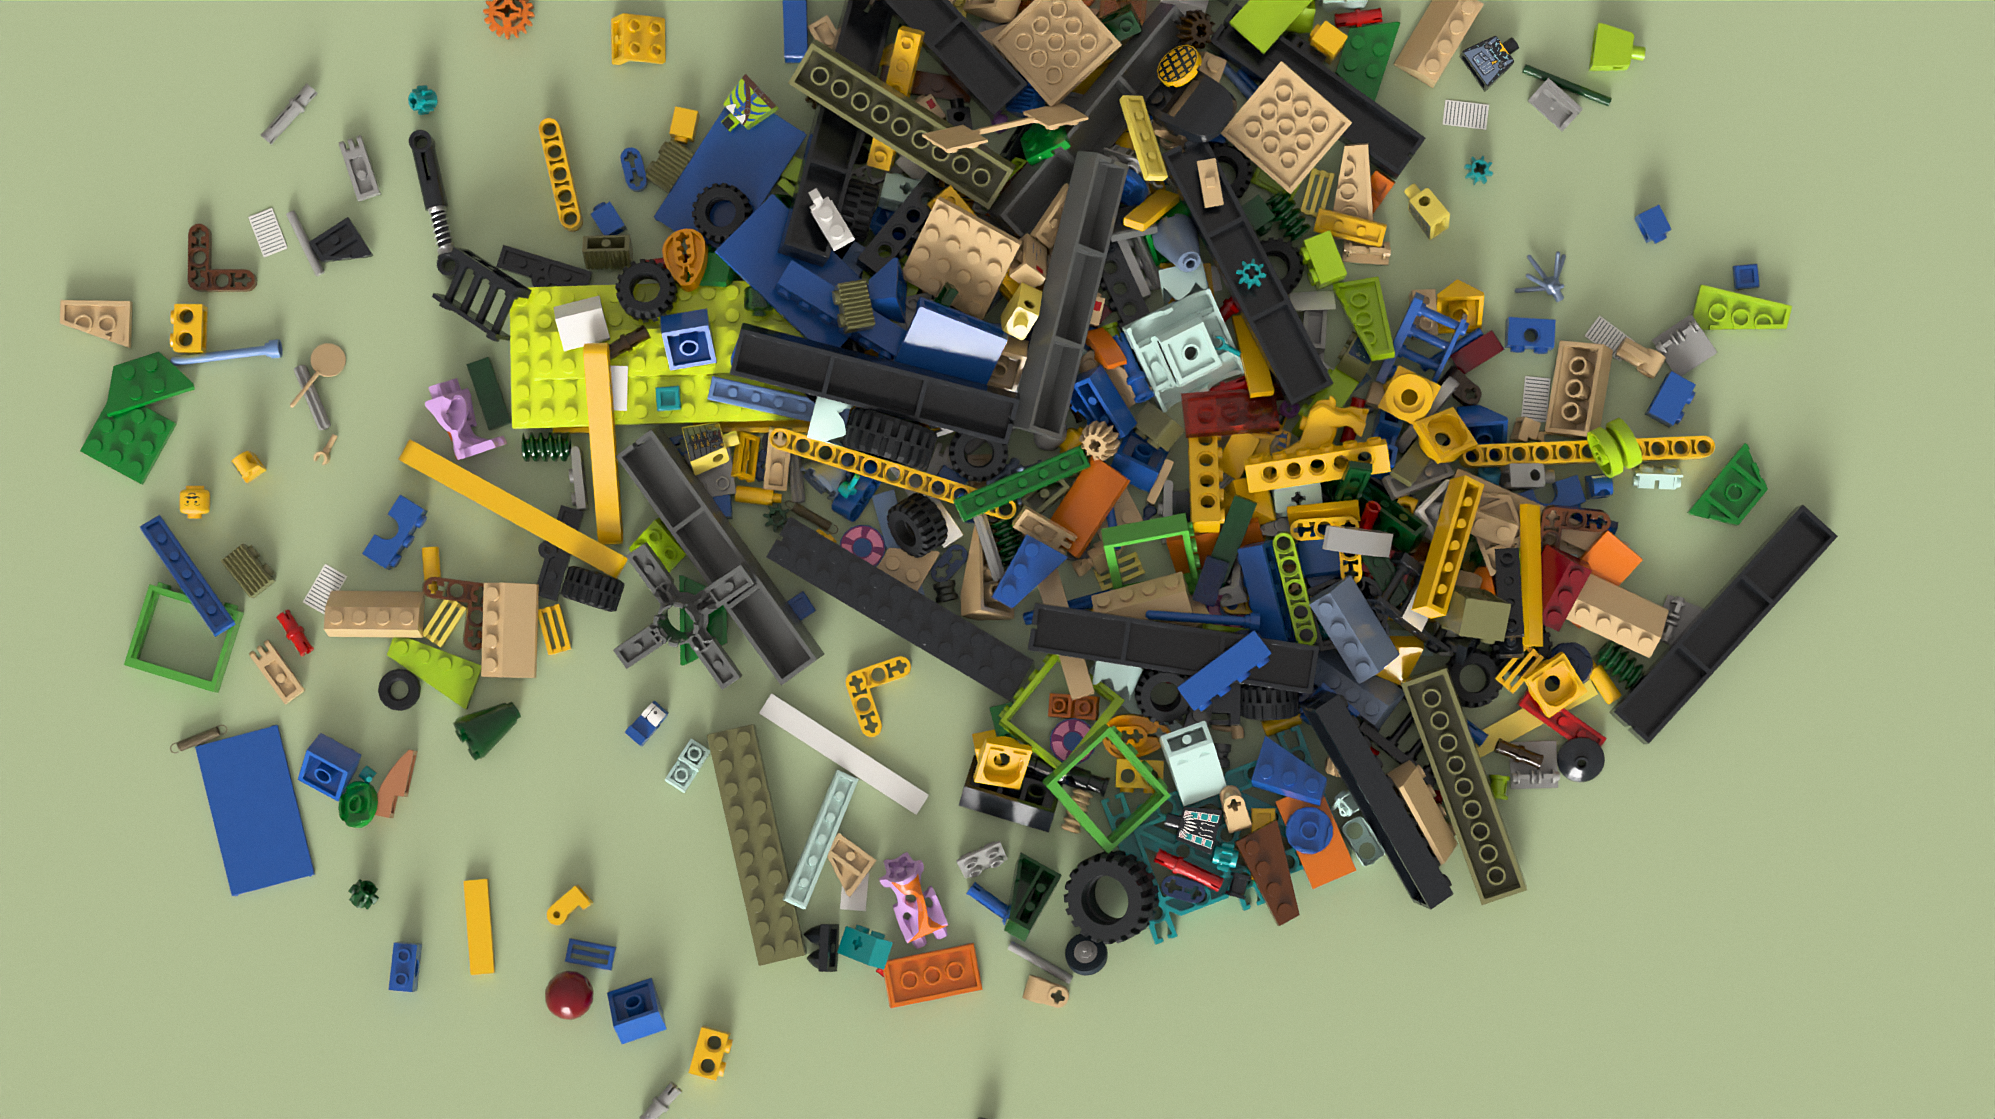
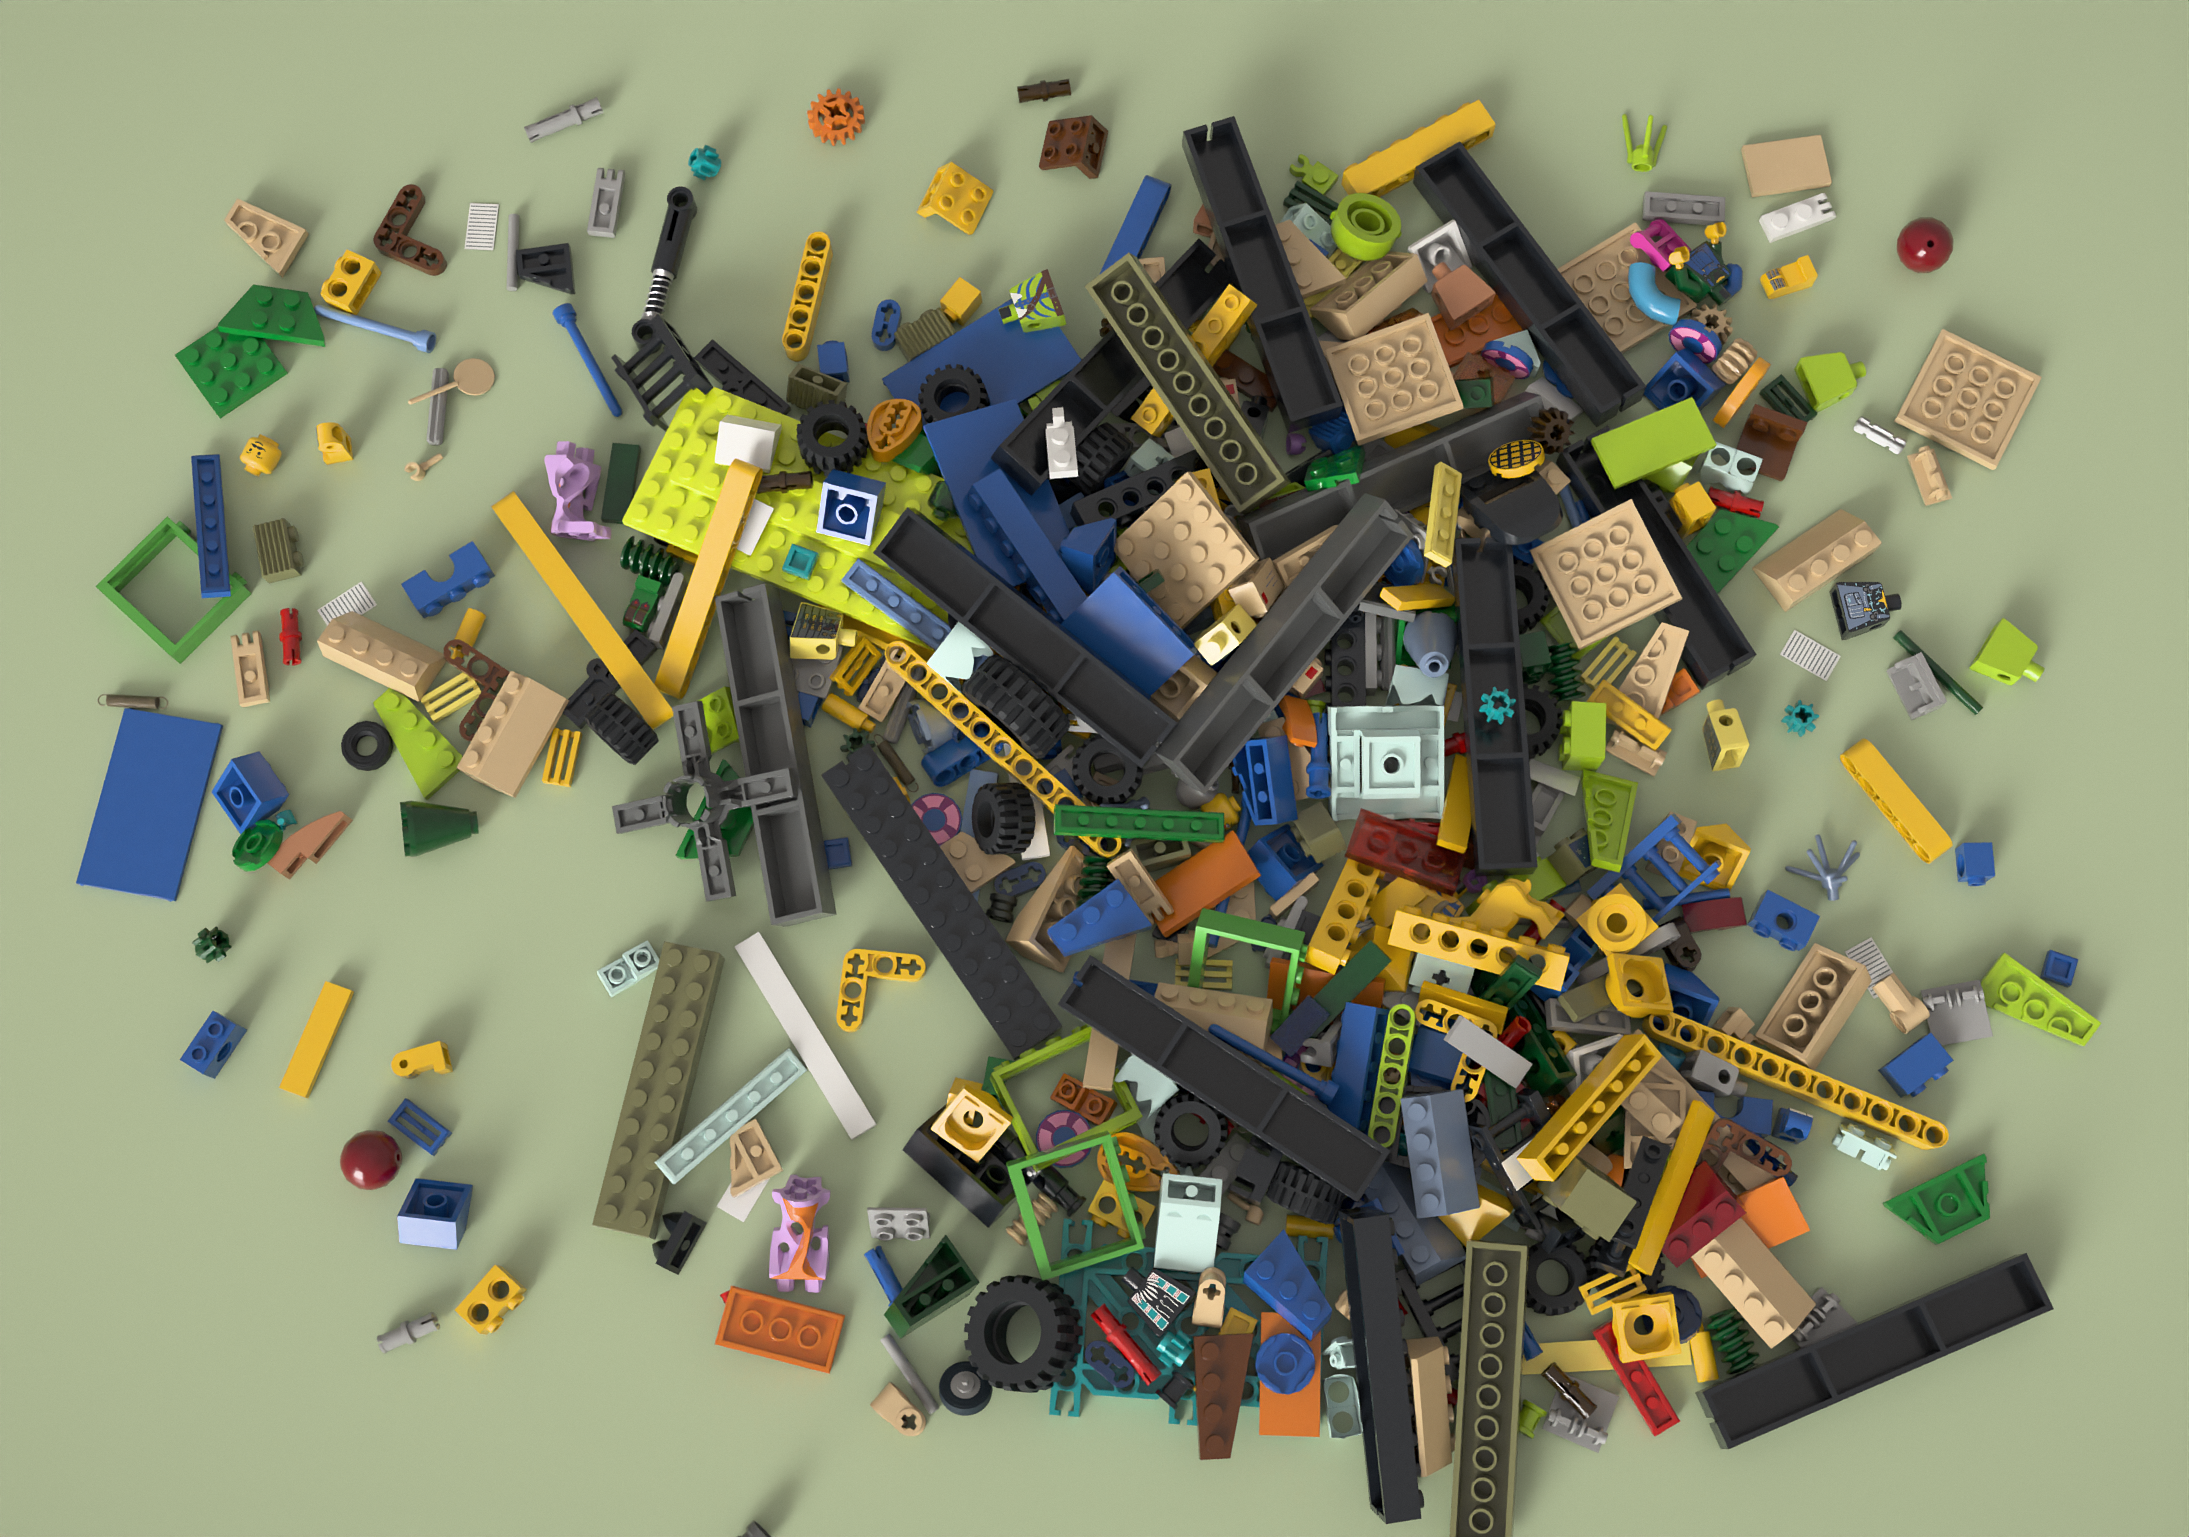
camera: 25 degrees right, 10 degrees down
(376, 278) = (566, 317): none -> blue piece
(557, 482) = (643, 604): none -> green leg
(647, 723) = (608, 902): blue leg -> none
(848, 488) = (948, 745): teal hand -> none
(853, 306) = (1043, 545): olive brick -> none
(865, 947) = (720, 1260): teal brick -> none
(961, 136) = (1251, 420): tan hinge -> none
(989, 546) = (1072, 876): light grey axle -> none
(1099, 440) = (1247, 816): tan gear -> none
(1210, 182) = (1495, 591): tan piece -> none
(1224, 670) = (1268, 1127): blue brick -> none
(1226, 347) = (1434, 779): teal hand -> none
(1536, 398) = (1760, 995): white sticker -> none
(1575, 202) = (1896, 801): none -> yellow beam
(1580, 749) = (1643, 1418): black dish -> none
(1614, 447) = (1831, 1084): lime wheel -> none

